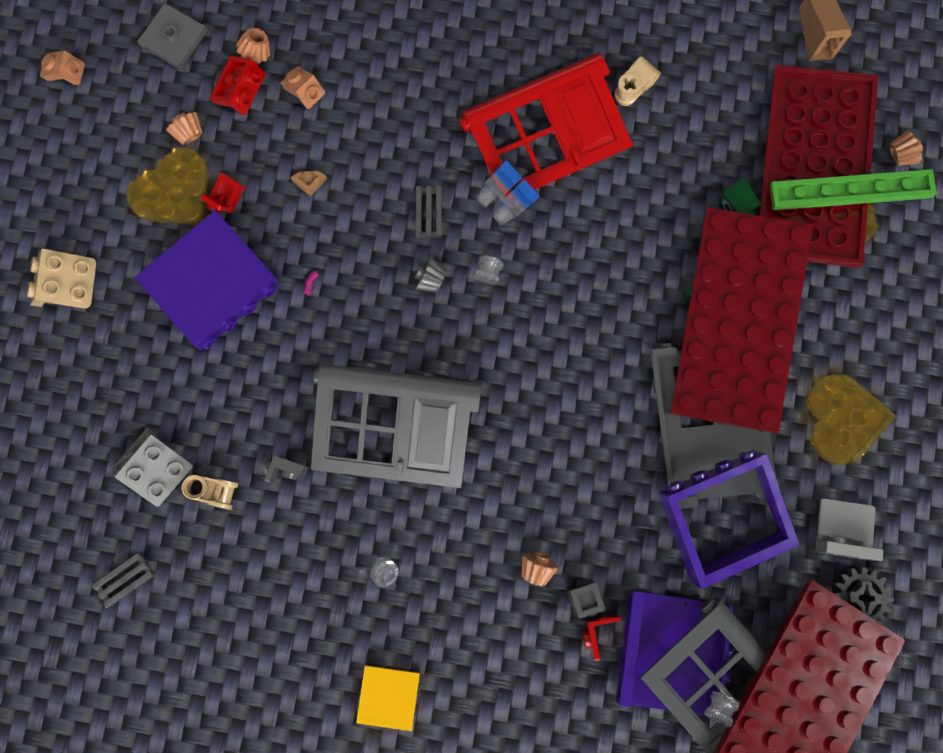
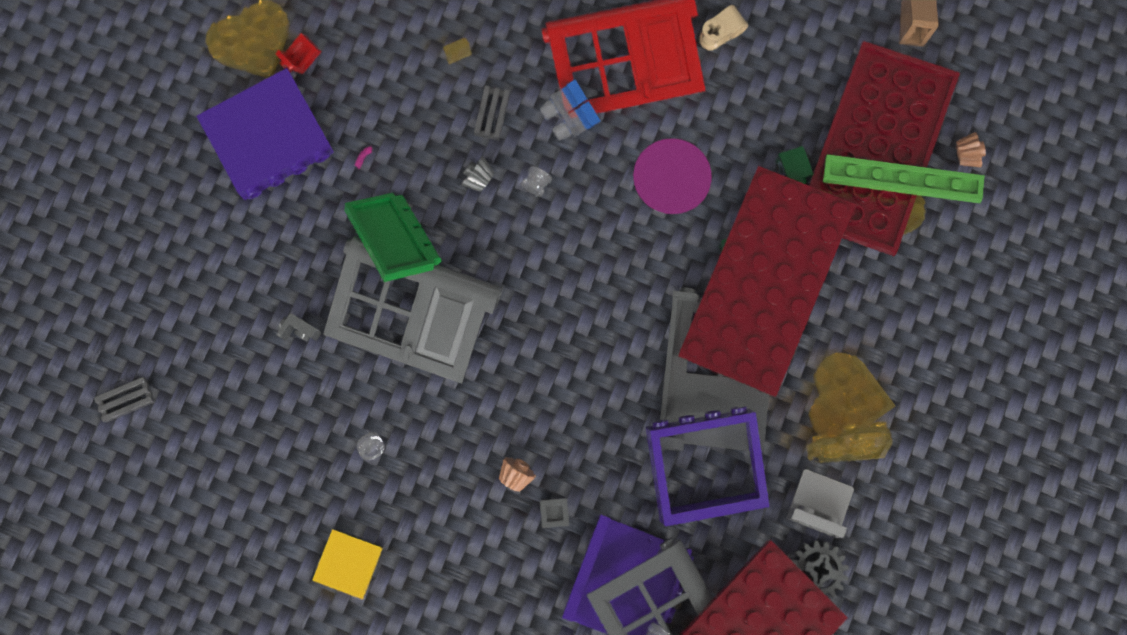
camera: 10 degrees right, 0 degrees up
(61, 279) = (127, 103): tan bracket -> none
(151, 468) = (173, 300): light grey bracket -> none
(214, 491) = (227, 335): tan piece -> none
(309, 180) = (383, 58): medium nougat tile -> none
(359, 356) = (392, 236): none -> green hinge
(380, 157) = (457, 50): none -> clear yellow tile
(589, 636) = (549, 549): red bracket -> none
(620, 236) = (672, 176): none -> magenta sticker
(867, 464) = (852, 444): none -> clear yellow plate

